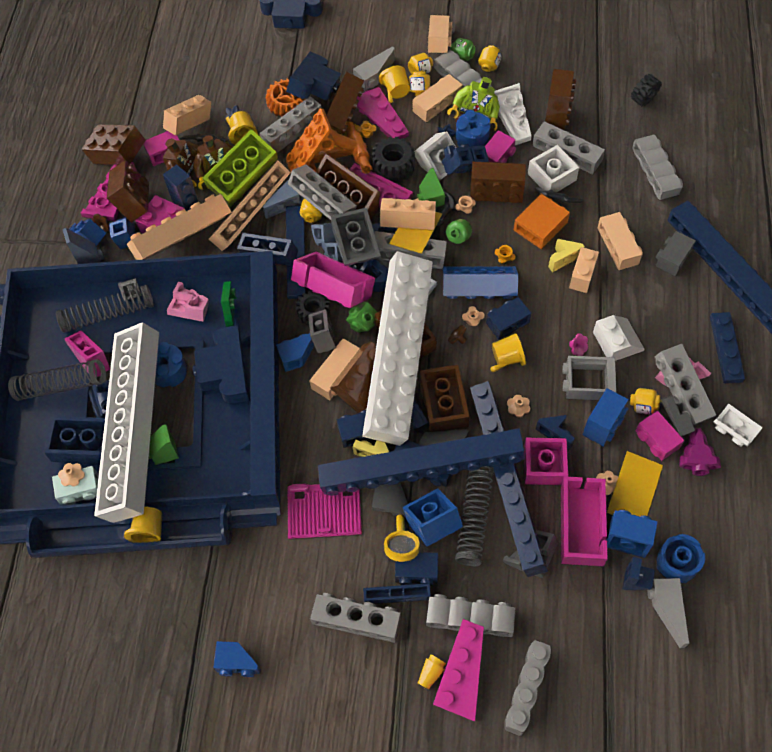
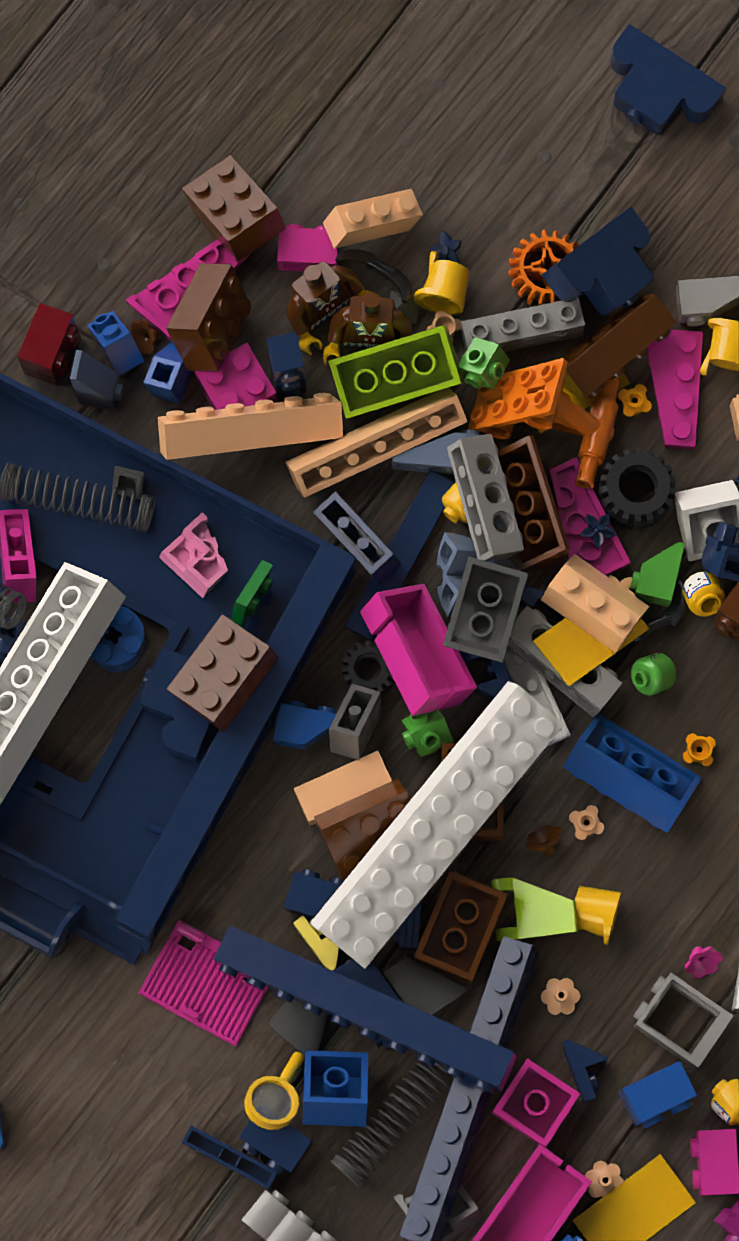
camera: 30 degrees right, 15 degrees up
(48, 245) = (49, 344): none -> dark red brick
(162, 446) = (44, 769): bright green slope -> none
(235, 337) = (223, 673): none -> brick
(282, 141) = (483, 364): none -> bright green brick
(386, 631) = (119, 1127): light grey brick -> none
(387, 185) = (597, 529): none -> dark blue plant
(458, 185) = (703, 593): none -> yellow head
(465, 200) = (696, 638): light nougat plate -> none
(480, 366) = (537, 911): none -> lime flag
(508, 317) = (630, 858): dark blue brick -> none

